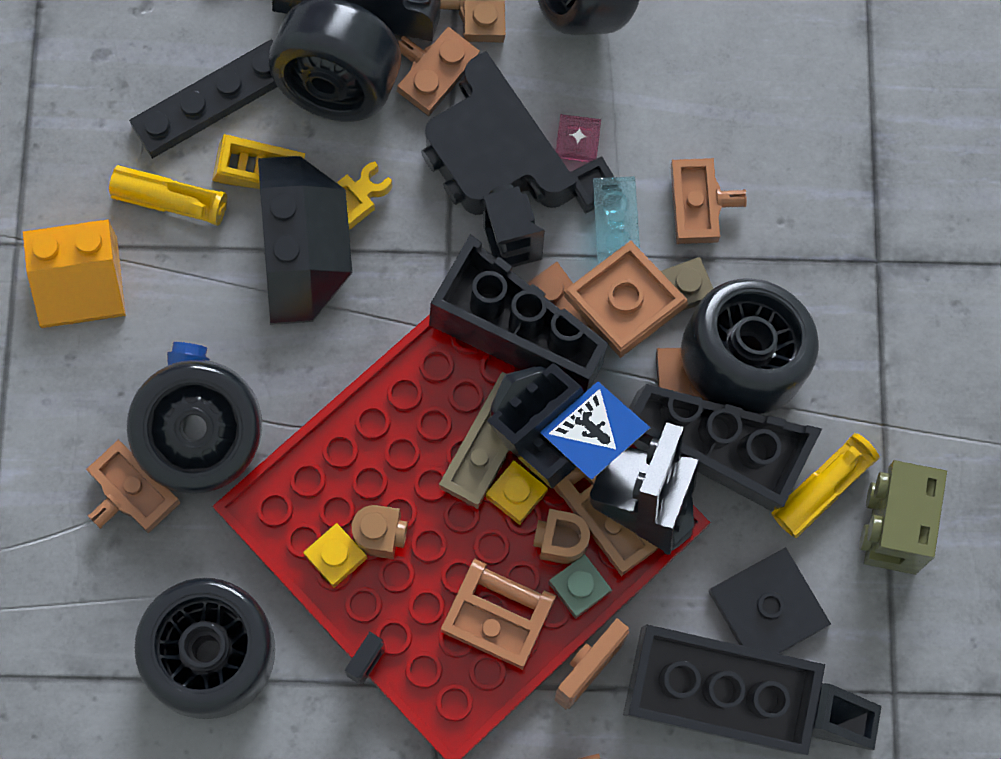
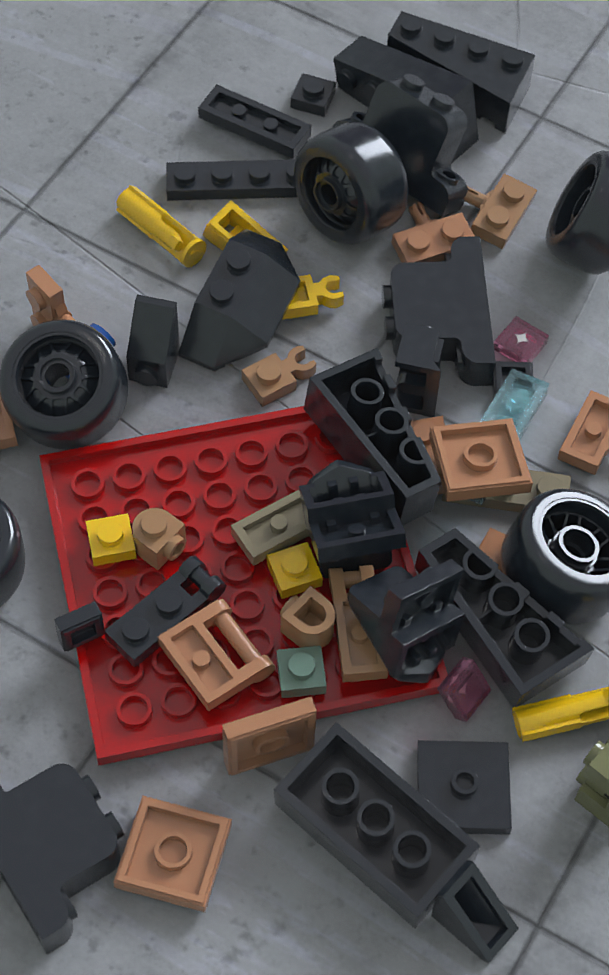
camera: 30 degrees right, 15 degrees down
(74, 273) = (52, 235): light orange slope -> none
(128, 351) = (45, 297): none -> nougat plate
(187, 25) = (254, 121): none -> black plate
(247, 333) = (153, 341): none -> black slope
(374, 299) = (275, 378): none -> medium nougat plate
(427, 599) = (138, 630): none -> black plate
(594, 430) = (384, 532): blue sticker -> none
(724, 520) = (464, 689): none -> clear pink tile

